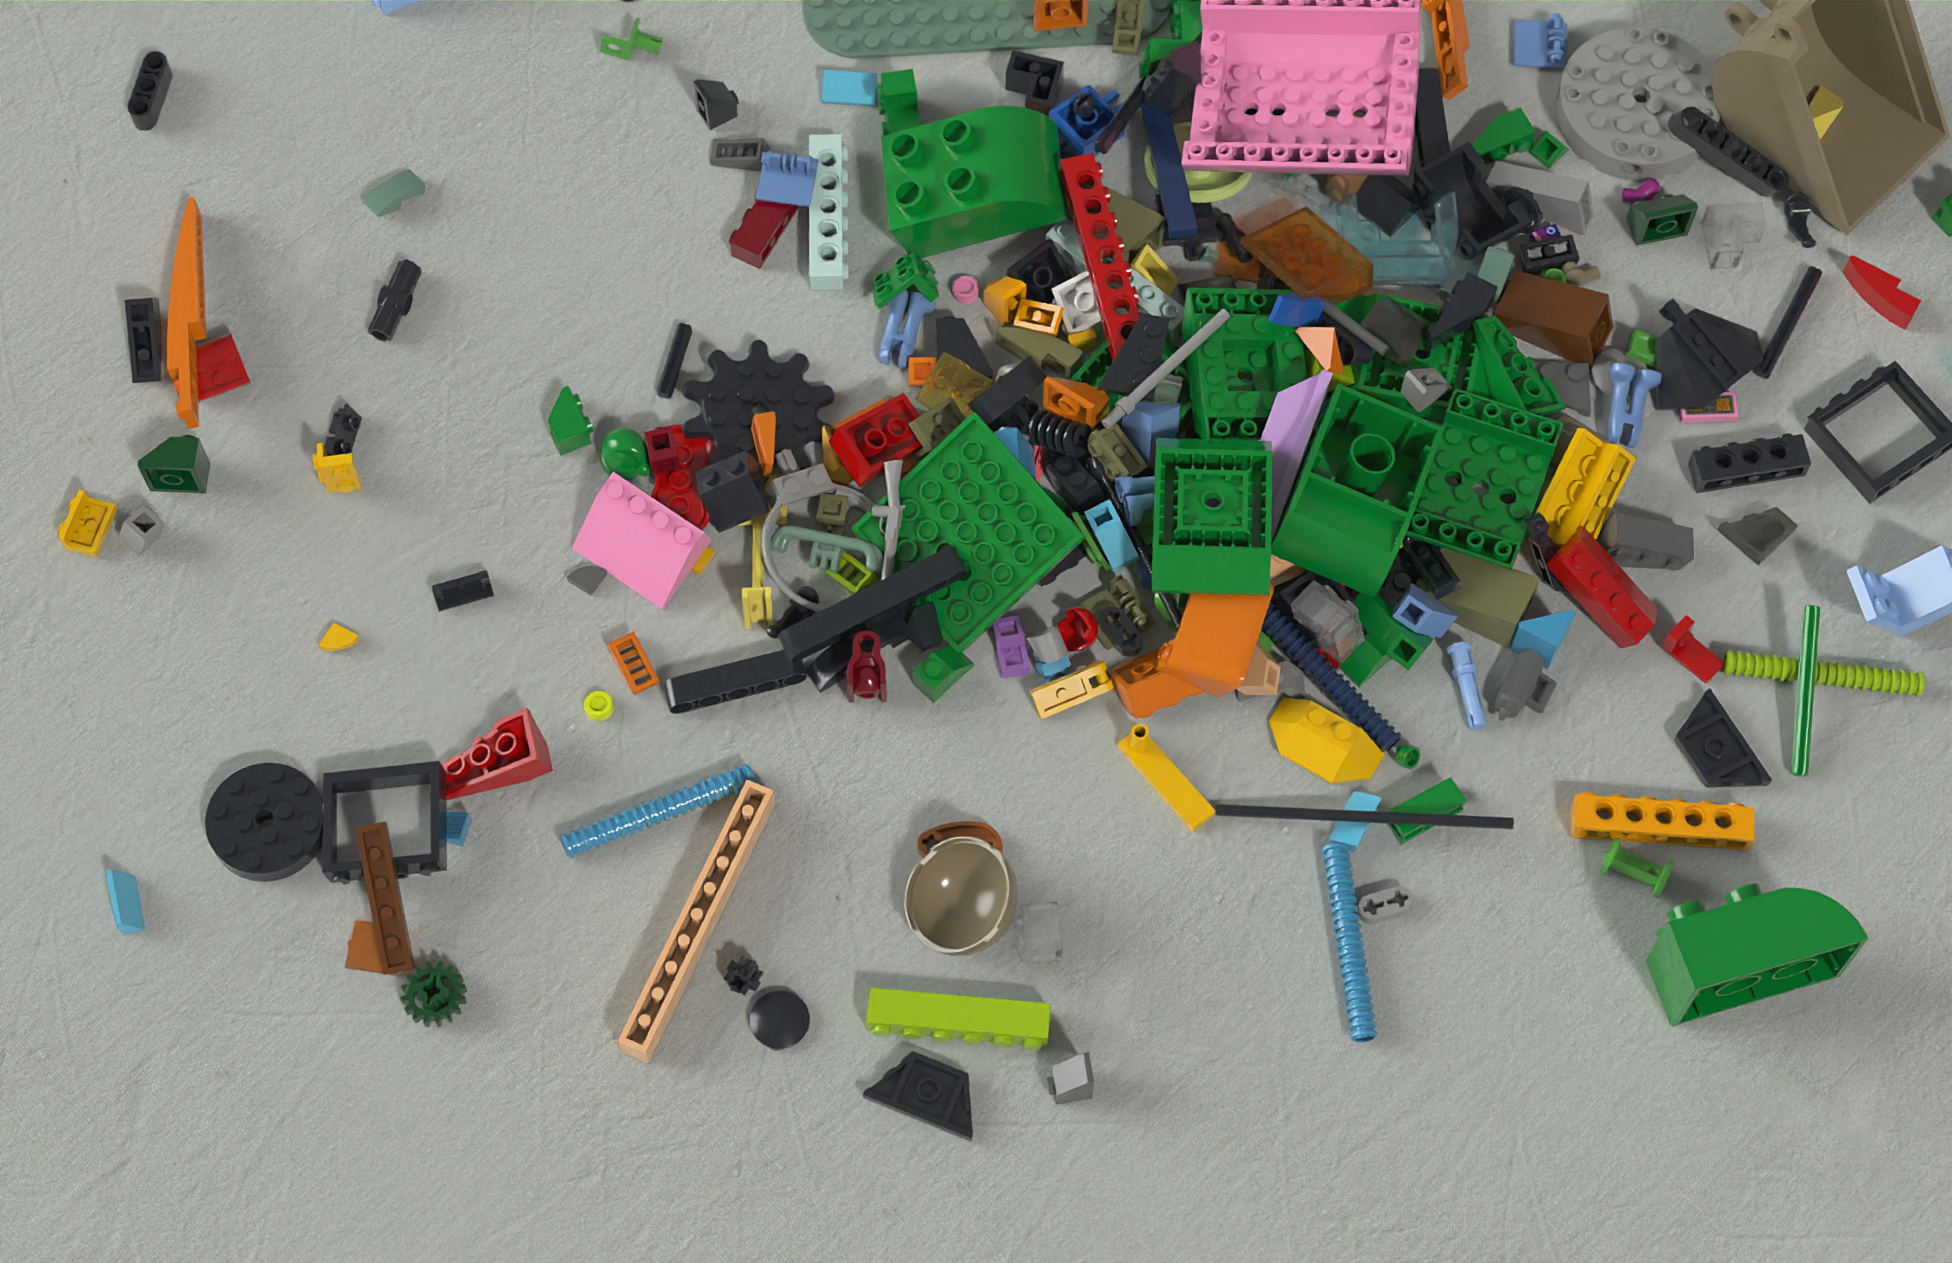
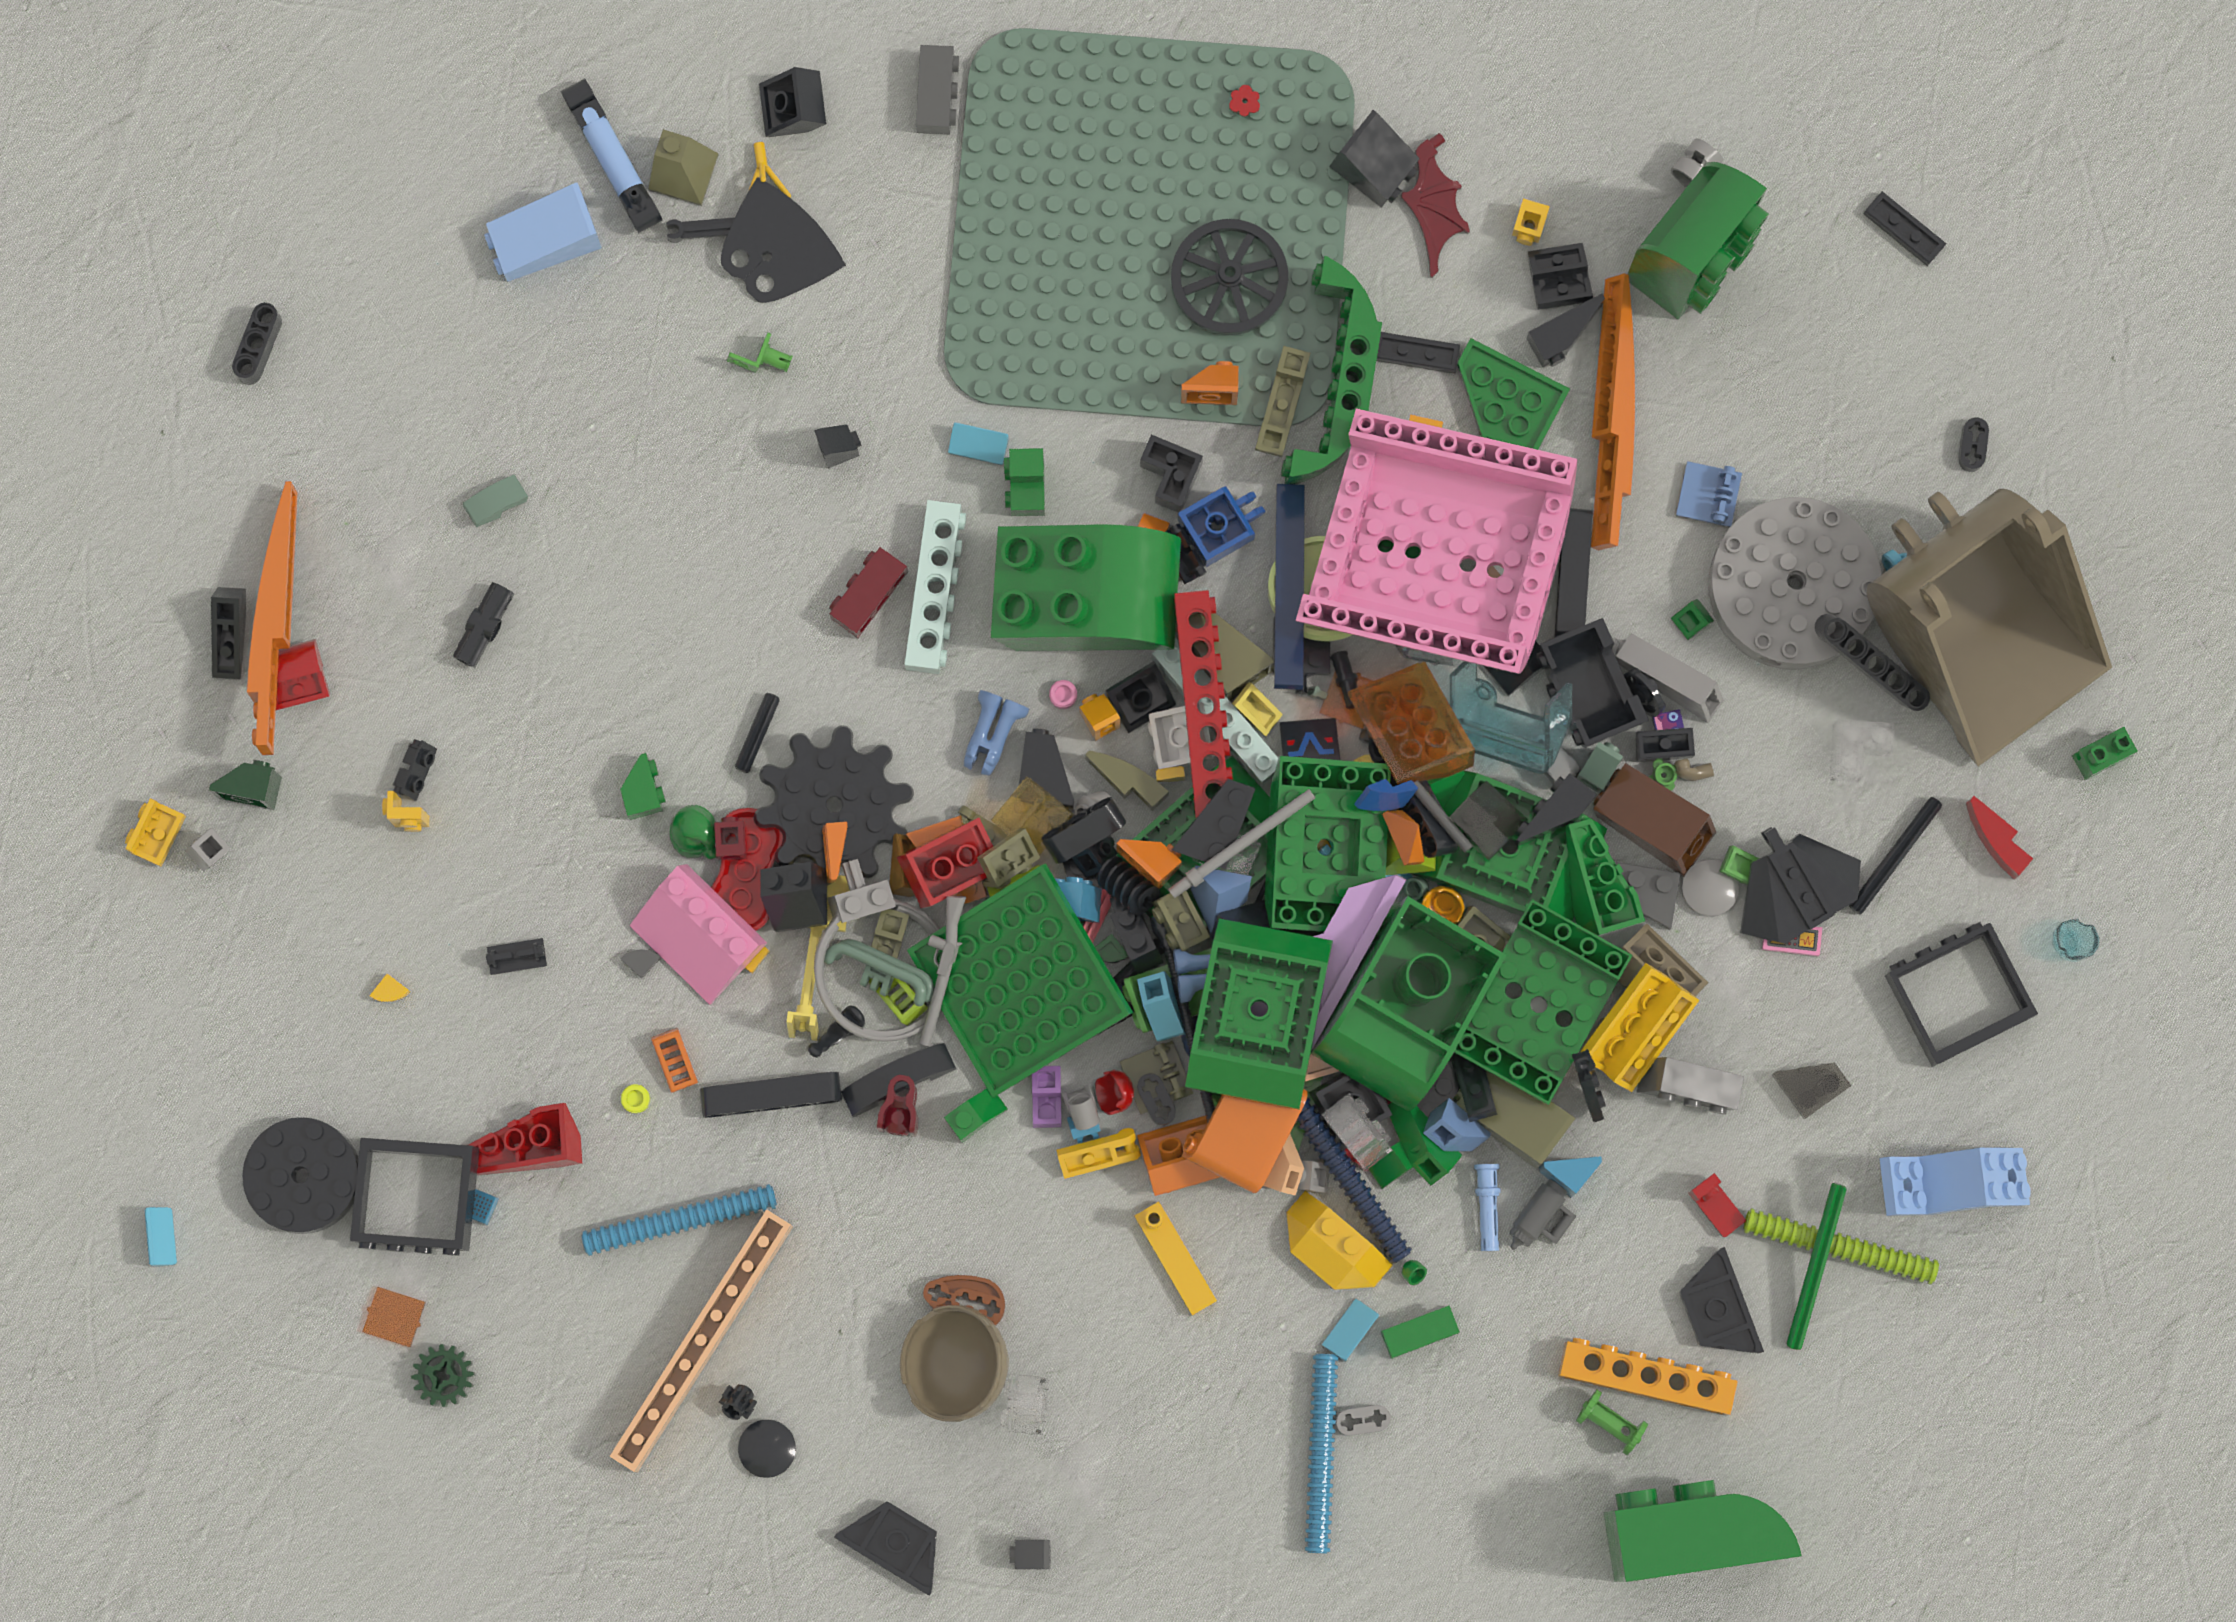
camera: 10 degrees right, 15 degrees up
(385, 898) = (406, 1278): reddish brown plate -> none
(751, 162) = (877, 510): dark grey slope -> none
(787, 178) = (897, 551): medium blue hinge -> none
(873, 604) = (915, 1043): black beam -> none
(905, 272) = (1000, 679): green bracket -> none
(919, 625) = (956, 1064): black slope -> none
(920, 369) = (1003, 783): orange plate -> none
(958, 1018) = (936, 1474): lime brick -> none
(1038, 317) = (1130, 748): light orange slope -> none
(1087, 107) = (1217, 517): black hinge -> none
(1121, 118) = (1253, 531): black axle -> none
(1174, 78) = (1313, 497): black slope -> none
(1365, 816) = (1358, 1334): black piece -> none
(1424, 387) = (1504, 889): light grey slope -> none
(1505, 136) = (1647, 600): green slope -> none
(1603, 589) = (1641, 1130): red slope -> none
(1642, 382) = (1712, 943): medium blue piece -> none
(1646, 191) = (1779, 686): magenta arm -> none
(1661, 218) = (1788, 720): dark green slope -> none
(1708, 476) = (1773, 1016): black brick -> none
(1796, 212) = (1932, 732): black piece -> none
(1824, 109) = (1983, 622): light yellow slope -> none

